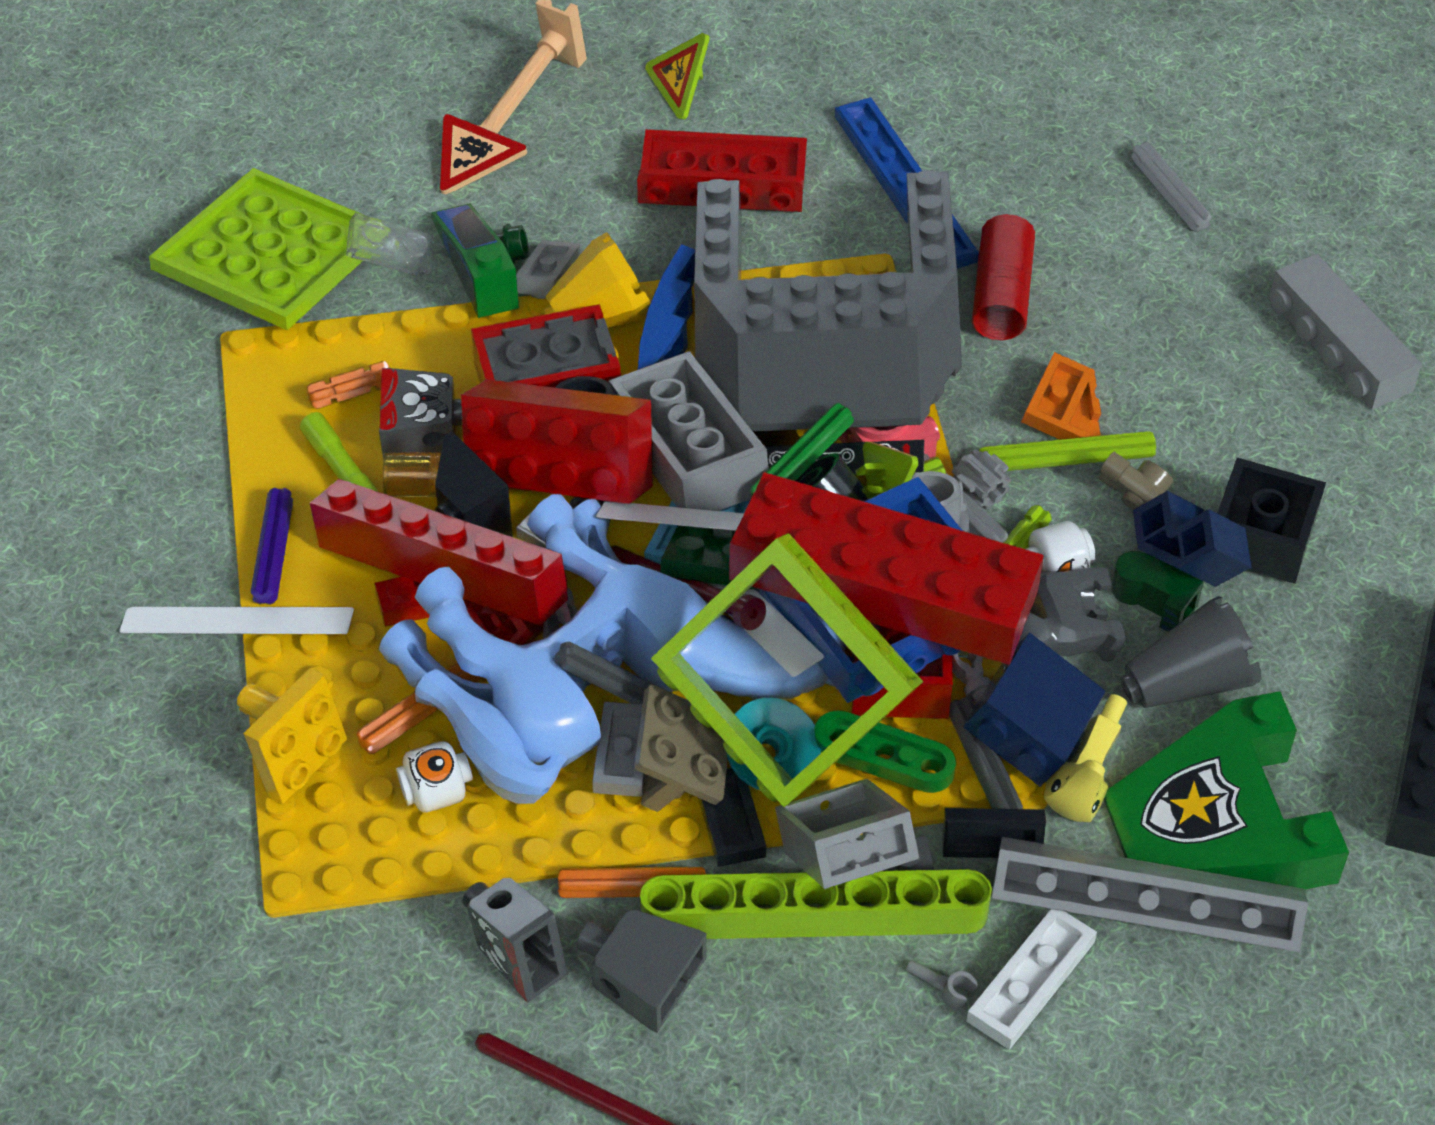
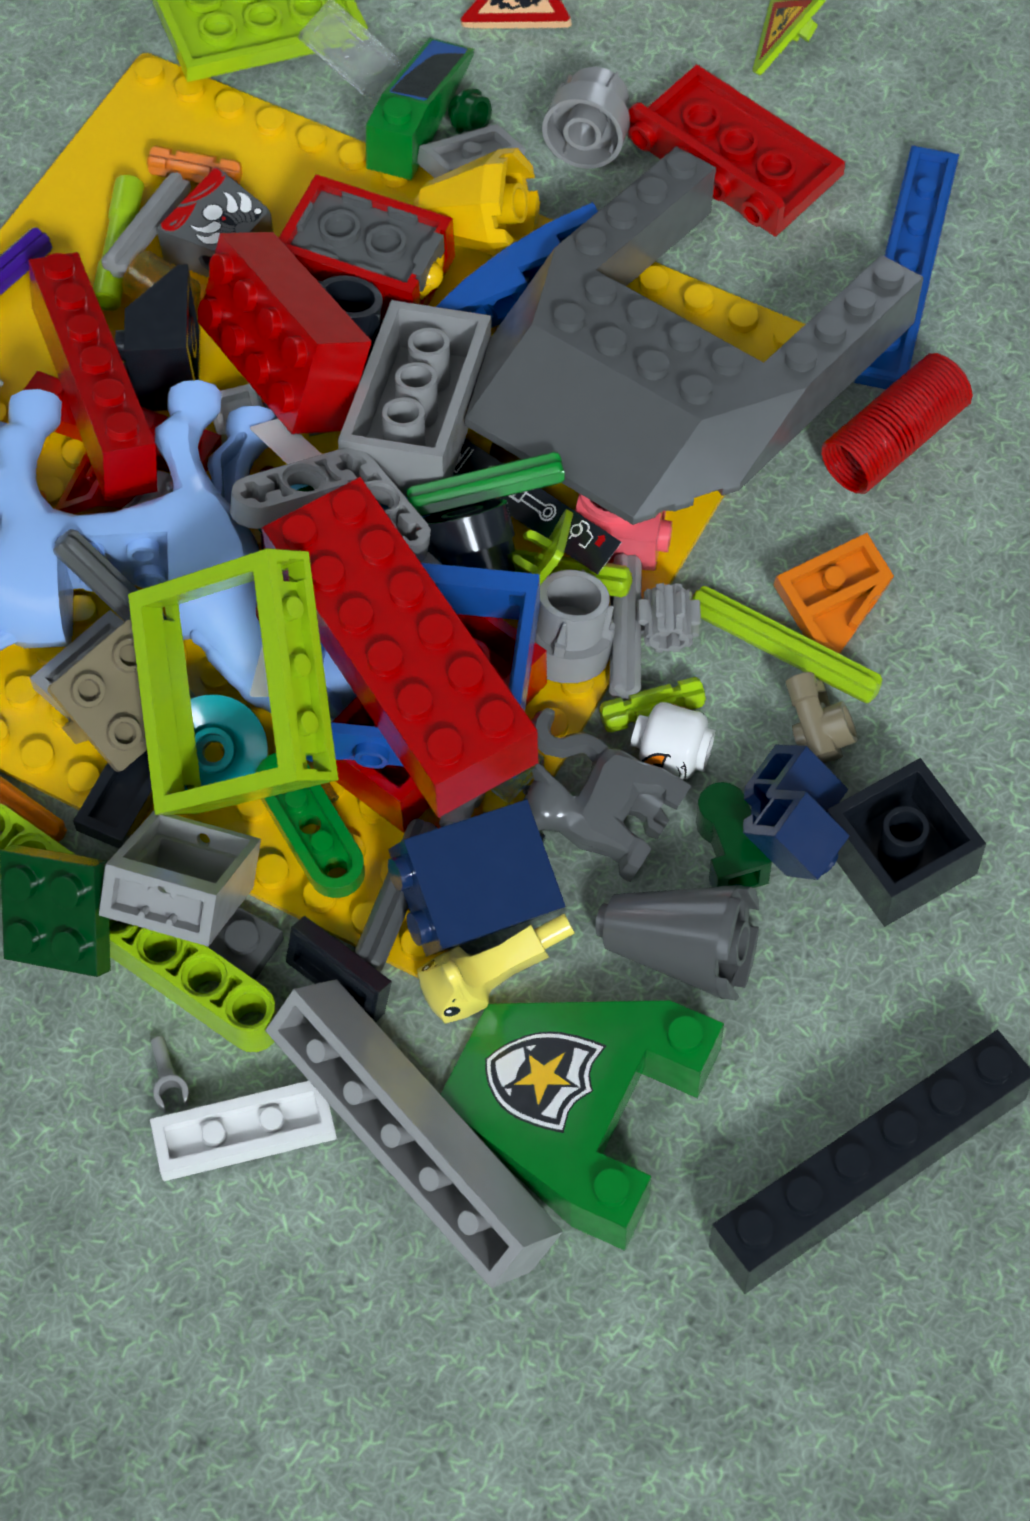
camera: 40 degrees right, 10 degrees up
(359, 439) = (144, 225): none -> light grey axle
(611, 199) = (588, 118): none -> light grey piece
(705, 507) = (268, 494): none -> light grey beam
(774, 916) = (54, 910): none -> dark green plate

